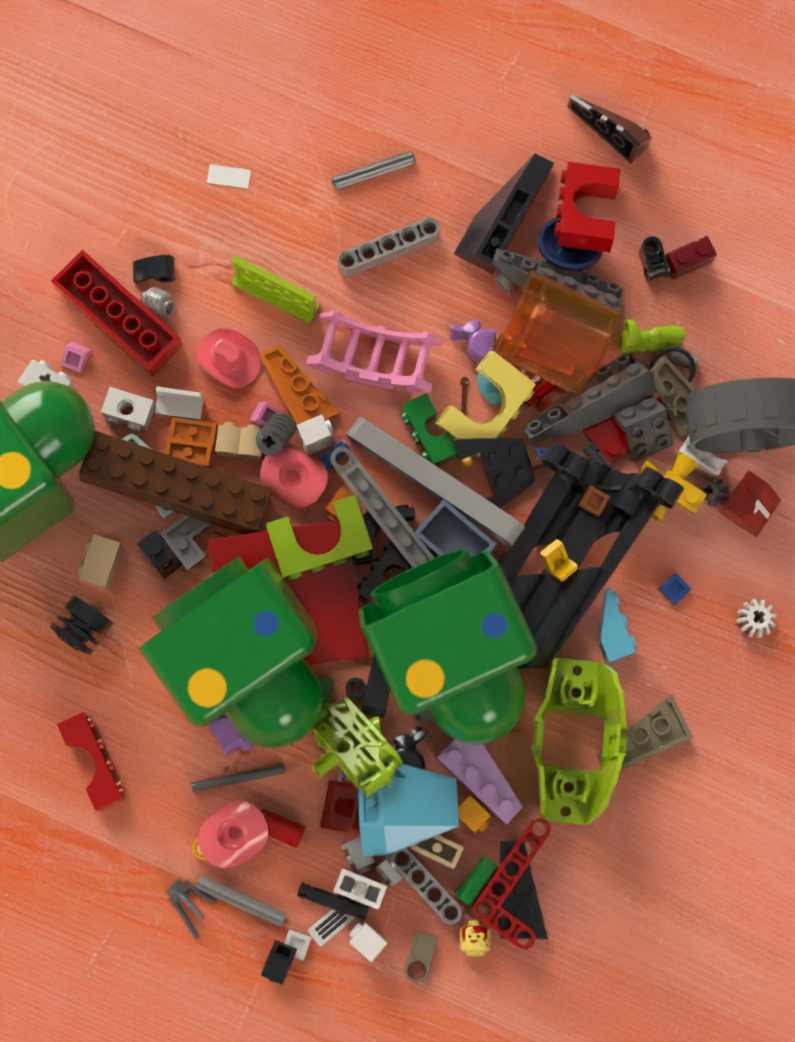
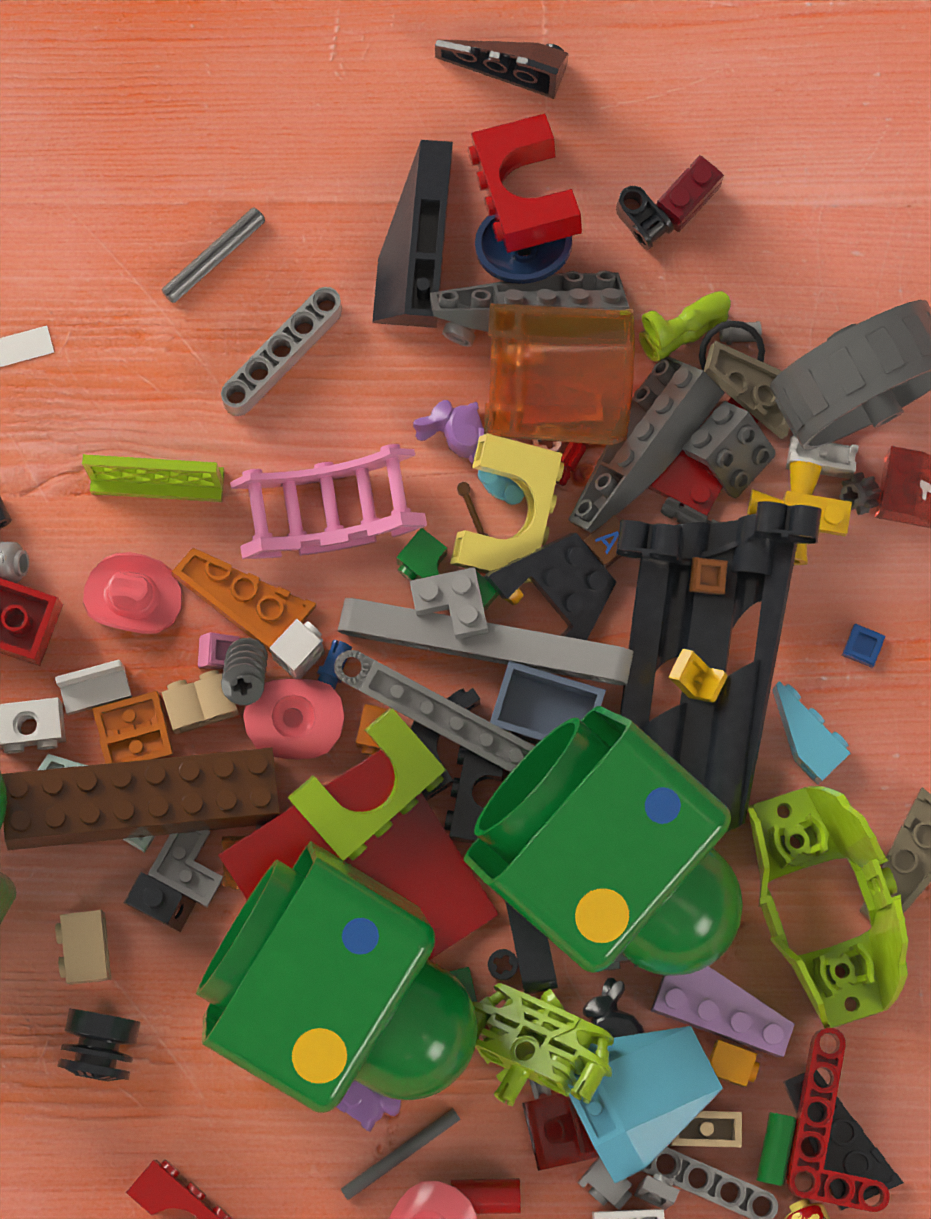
camera: 20 degrees left, 0 degrees up
(429, 442) = (456, 592): none -> light grey plate

